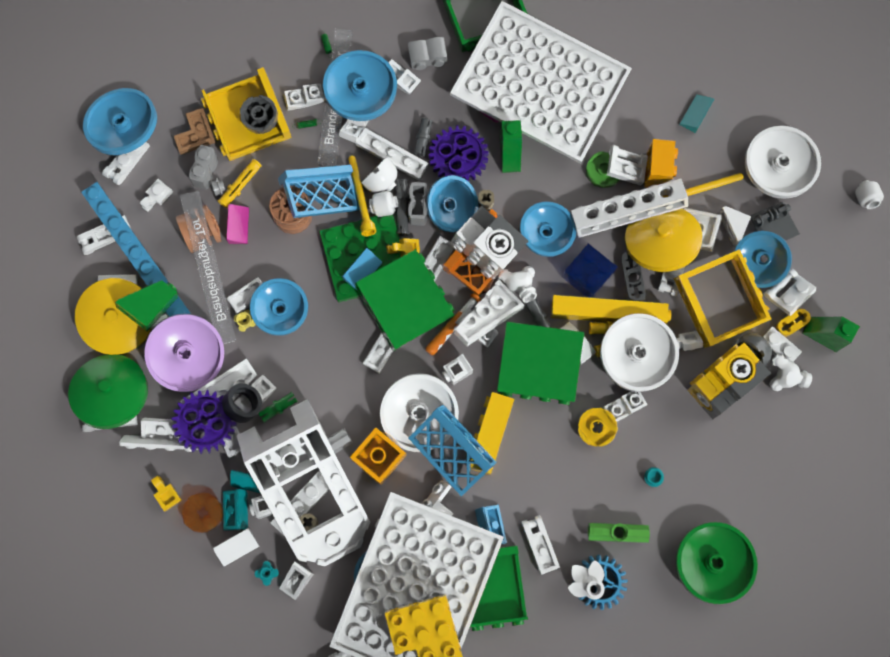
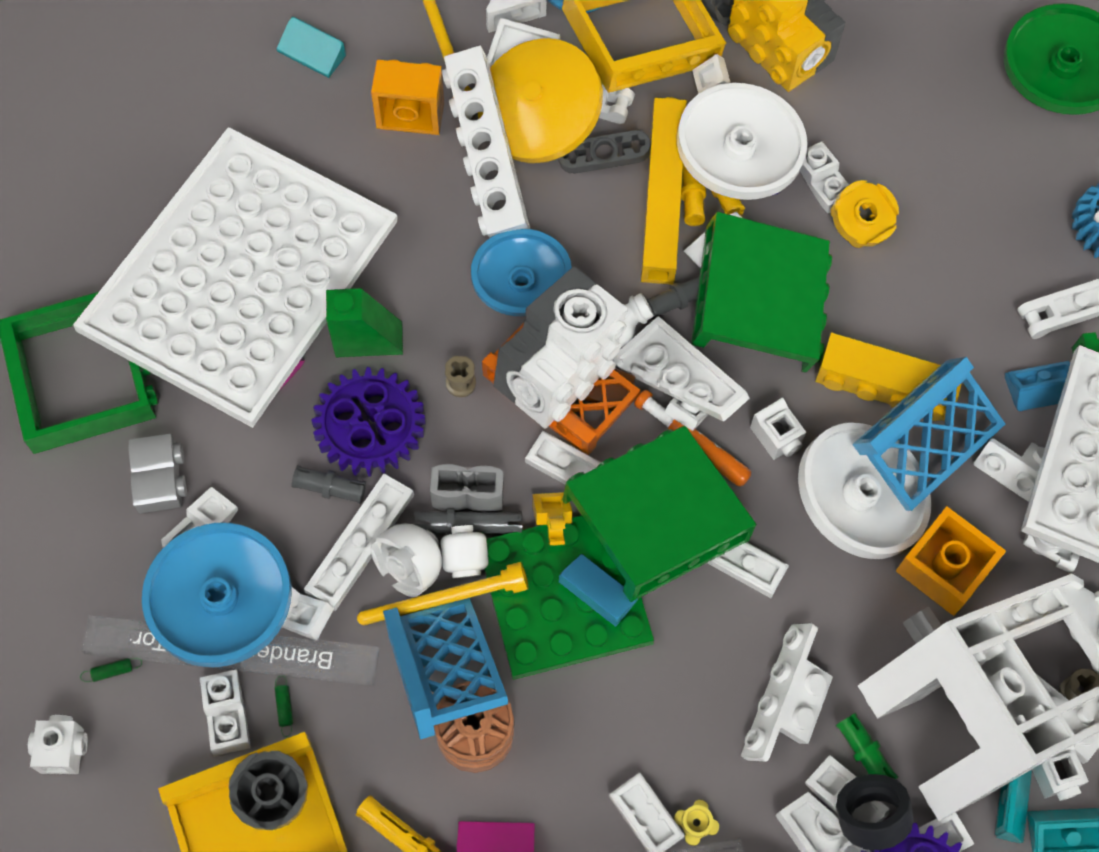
camera: 90 degrees left, 10 degrees down
(277, 294) = (690, 727): dark azure dish -> none
(286, 22) = (57, 745): none -> white brick
(306, 370) = (791, 697): none -> white bracket
(461, 203) = (469, 428): dark azure dish -> none
(589, 271) = (596, 214): clear blue brick -> none
(597, 170) = (406, 189): bright green tile -> none
(626, 169) = (412, 153): white plate -> none
(631, 533) = (1036, 207): bright green piece -> none
(654, 477) = (937, 140): teal plate -> none

